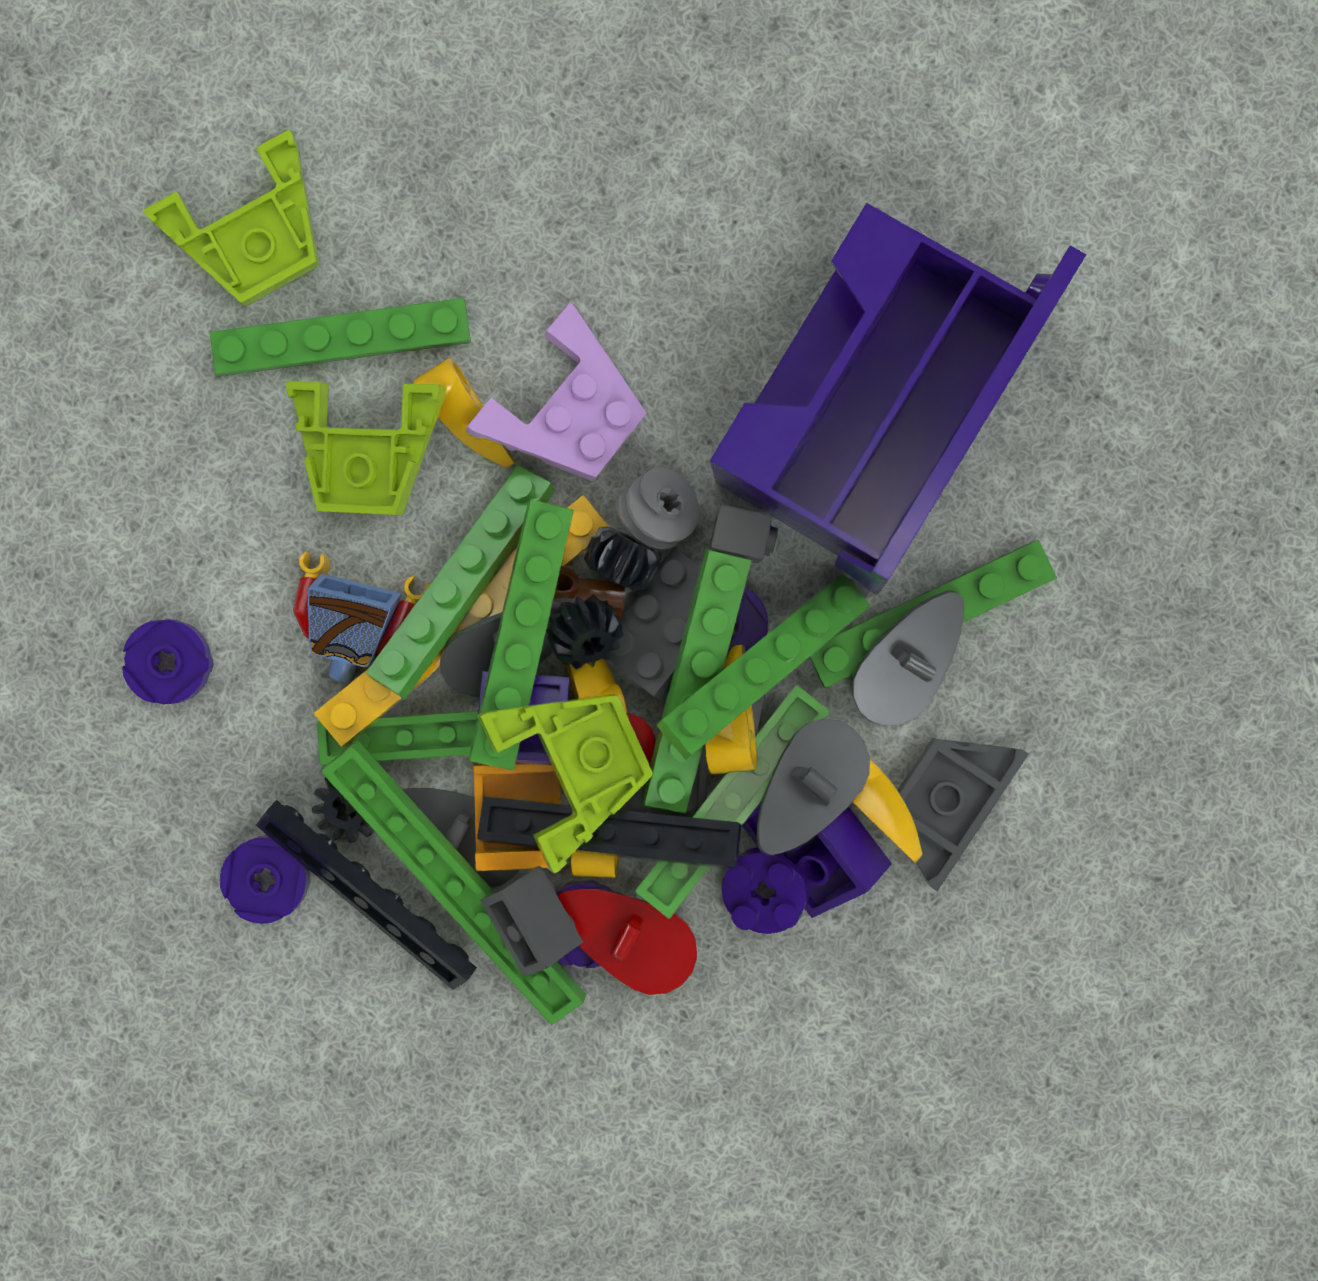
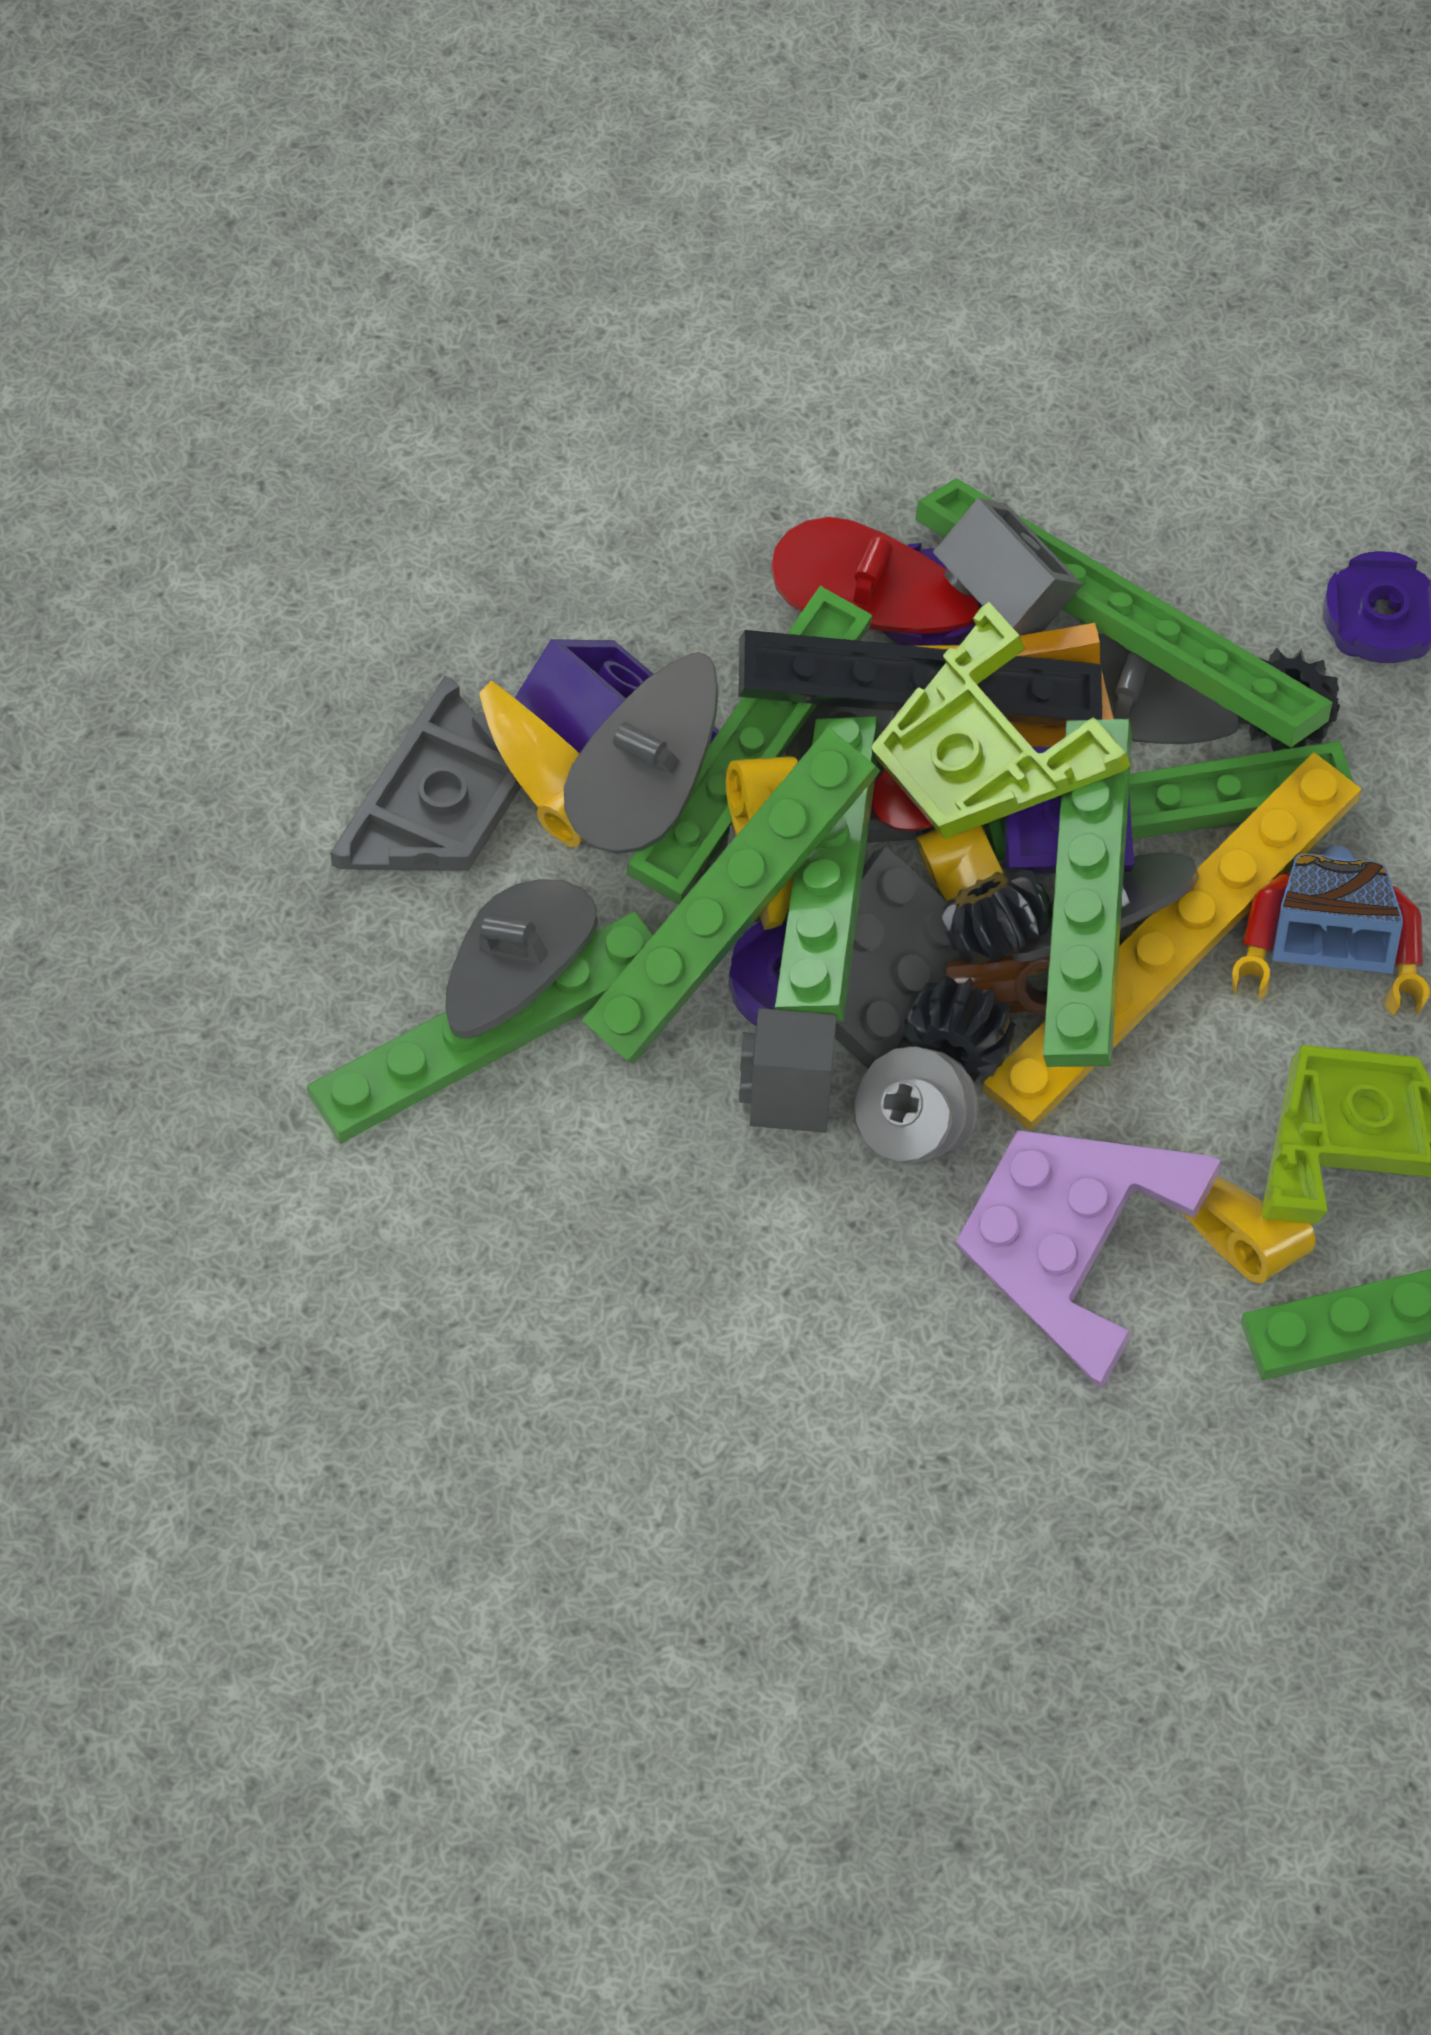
camera: 175 degrees right, 30 degrees down
(355, 886) = (1260, 605): black plate -> none
(458, 584) = (1186, 975): bright green plate -> none
(760, 914) = (674, 632): dark purple plate -> none
(883, 392) = (605, 1239): dark purple piece -> none

